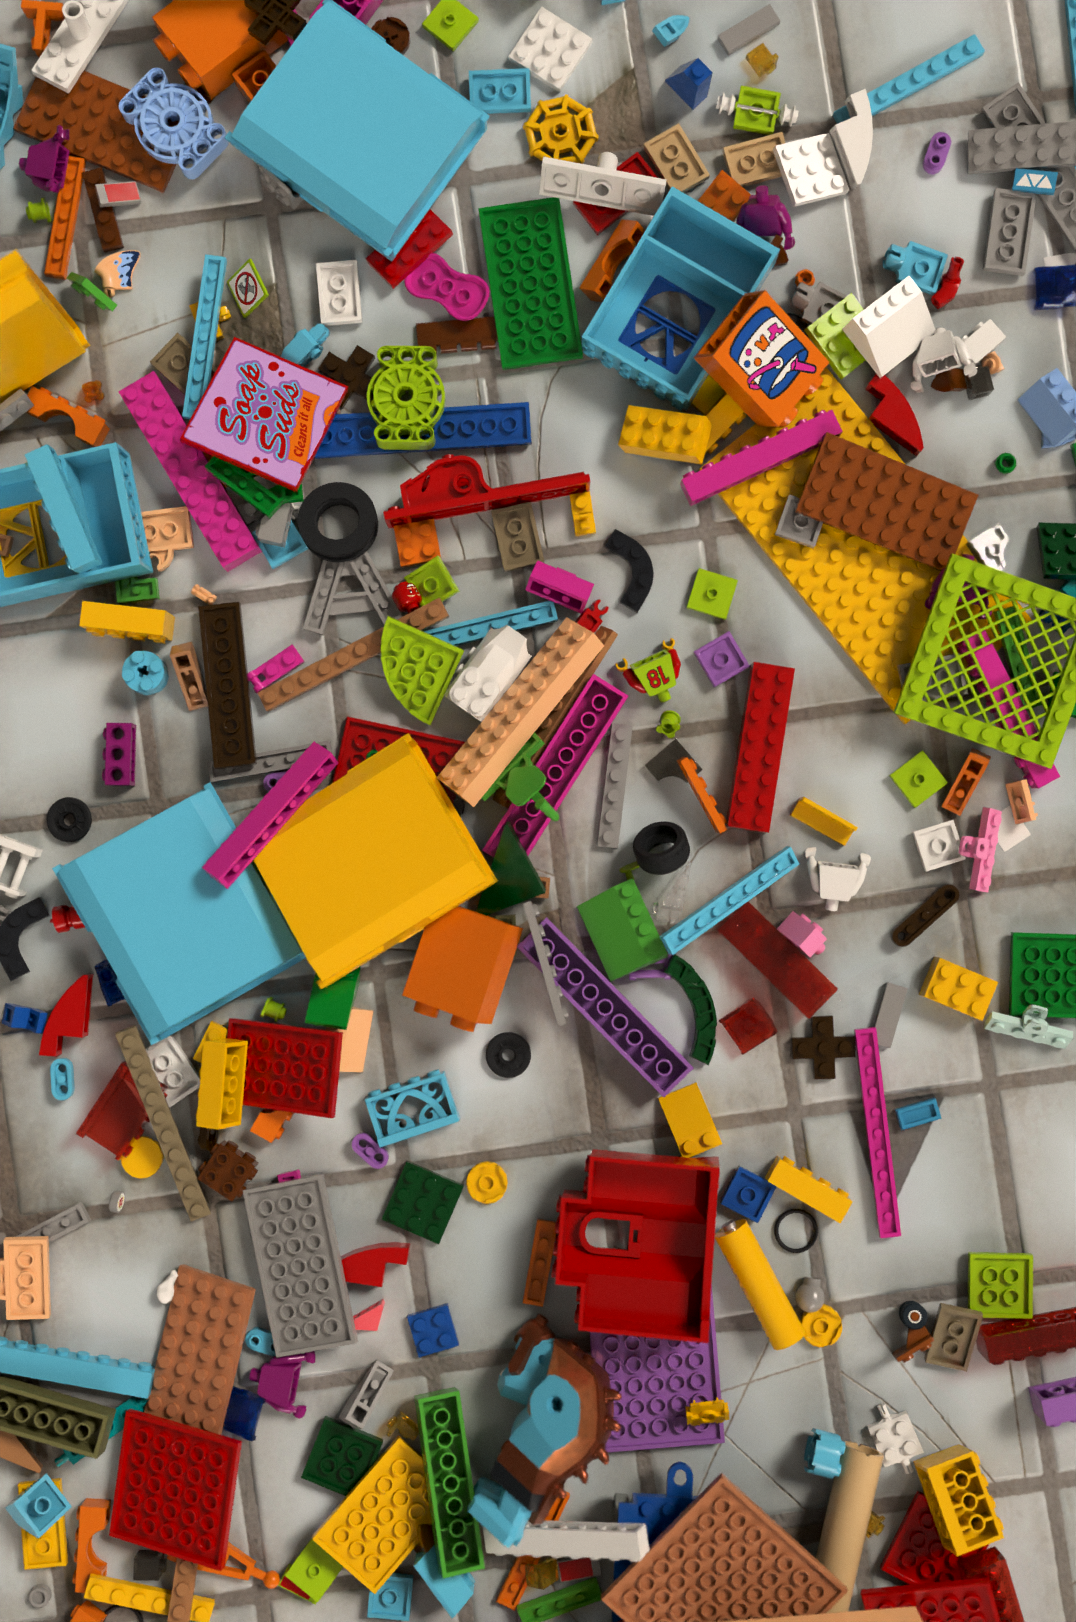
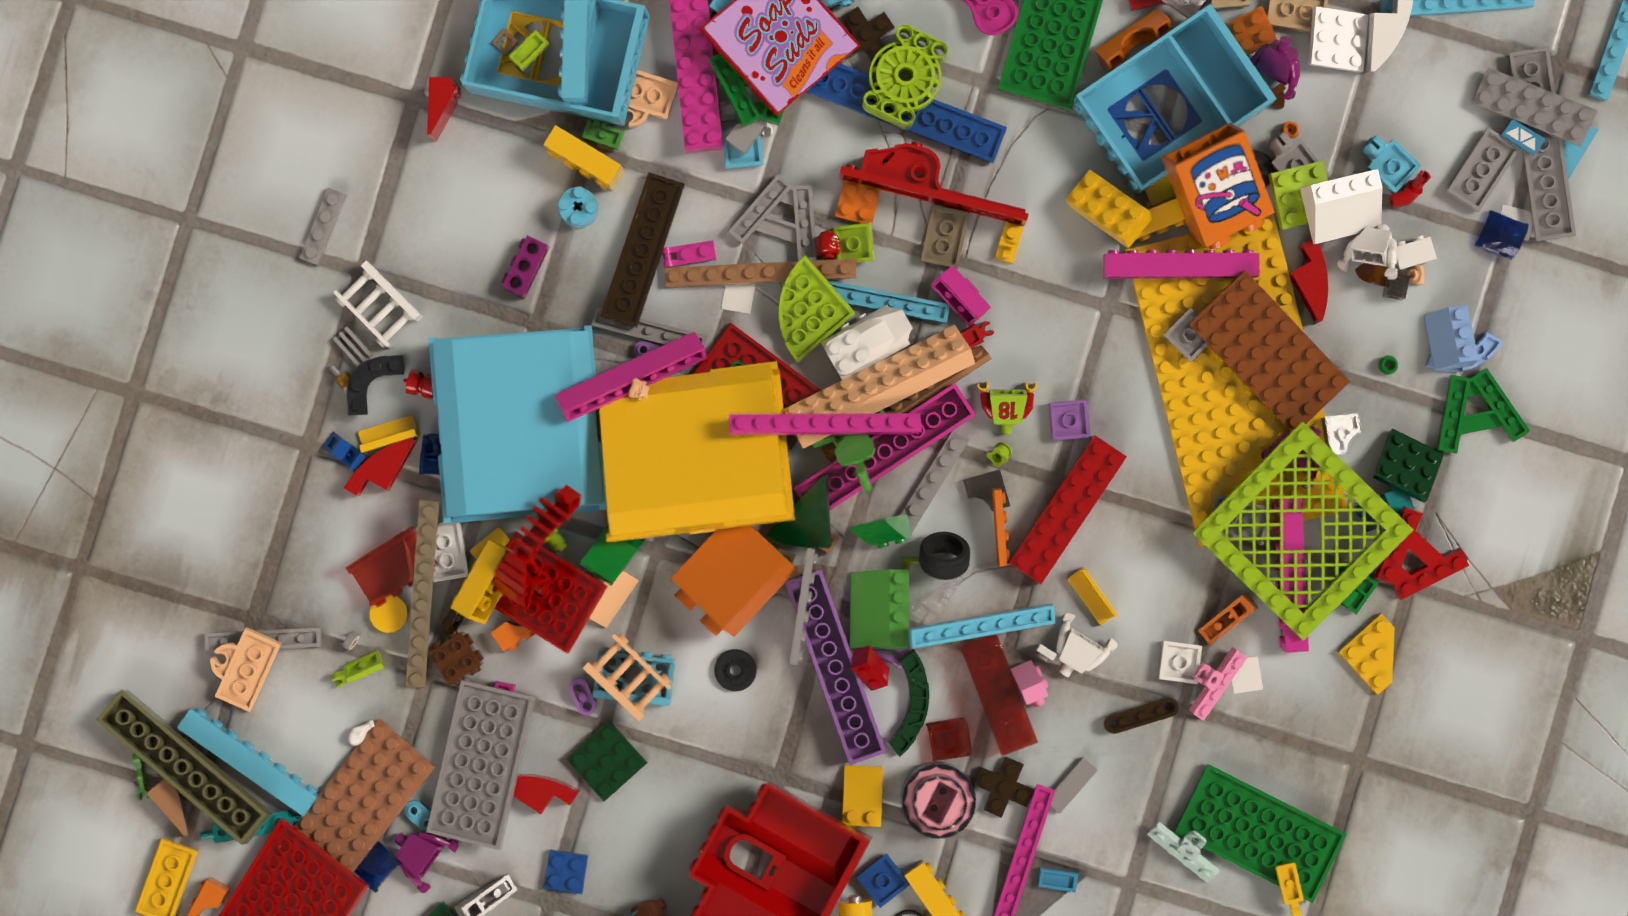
camera: 20 degrees right, 0 degrees up
(21, 538) = (529, 50): none -> lime tile
(38, 1506) = (172, 863): medium azure slope -> none
(58, 981) = (387, 434): none -> yellow panel
(61, 1078) = (351, 516): medium azure plate -> none
(81, 823) = (468, 306): black wheel -> none
(137, 1225) = (358, 669): none -> lime plate
(189, 675) = (614, 227): medium nougat slope -> none
(203, 594) = (657, 163): light nougat piece -> none
(247, 1059) = (518, 572): none -> red piece
(283, 823) = (638, 389): none -> light nougat plate
(334, 495) = (799, 129): black tyre -> none
(343, 688) = (738, 297): none -> white sticker
(370, 1317) = (518, 836): coral slope -> none
(388, 1126) = (608, 683): none -> light nougat fence
(458, 332) = (971, 38): reddish brown windscreen -> none
(482, 773) = (824, 424): none -> dark pink plate
(487, 1182) = (668, 769): yellow tile -> none
(539, 1263) = (681, 856): orange plate -> none
(591, 851) = (884, 531): none -> green slope
(639, 992) = (870, 668): none -> red brick
(640, 565) = (1037, 310): black plate -> none
(712, 594) = (1087, 361): lime plate -> none
(785, 1090) = (954, 807): none -> bright pink piece
(803, 897) = (1045, 653): none -> white plate
(918, 779) = (1189, 598): lime plate -> none
(938, 152) = (1453, 72): medium lavender plate -> none
(958, 988) = (1140, 789): yellow brick -> none
(1013, 658) = (1315, 531): bright green plate -> none
(1021, 802) = (1266, 657): light nougat plate -> none

